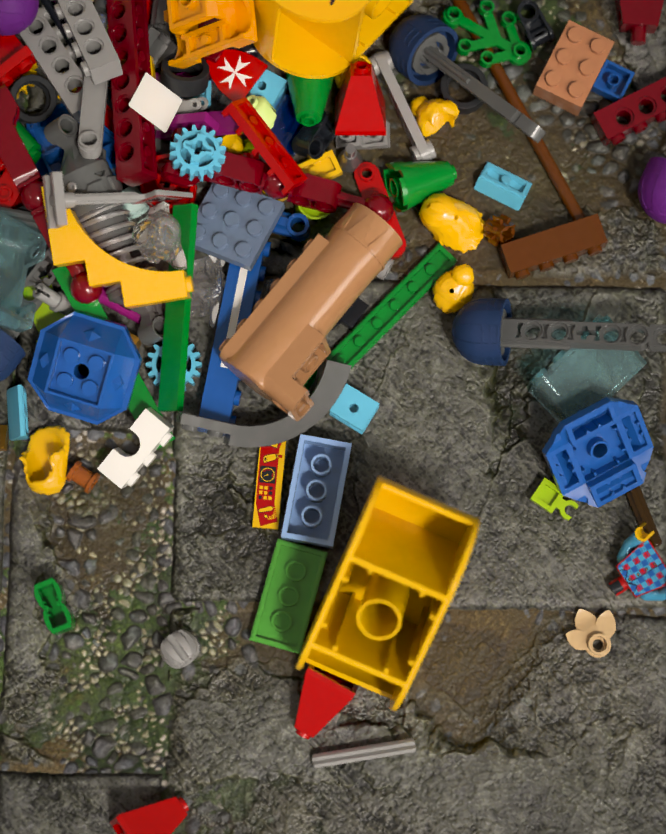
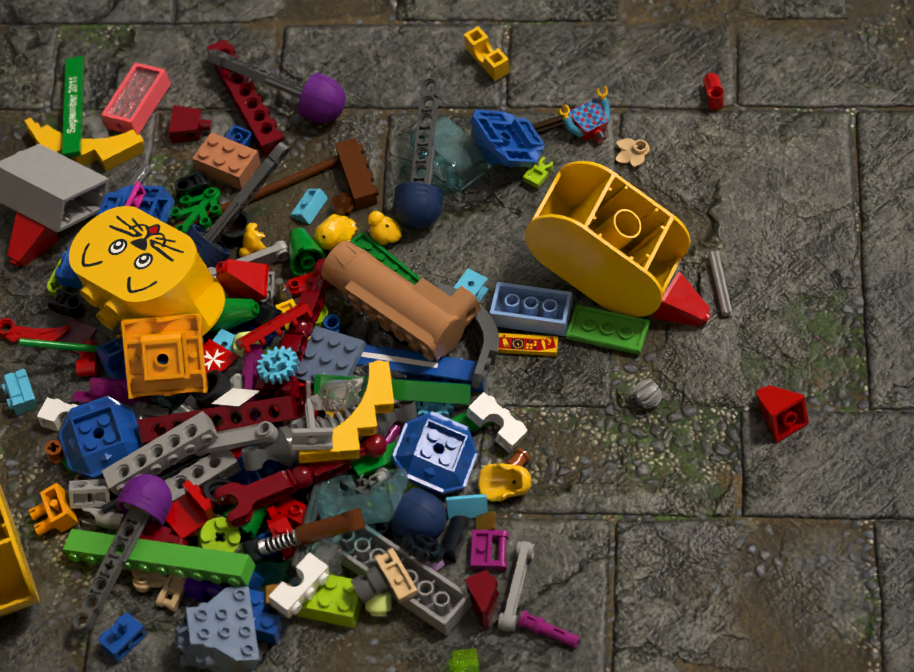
camera: 80 degrees left, 25 degrees down
(56, 613) = (620, 472): green brick -> none

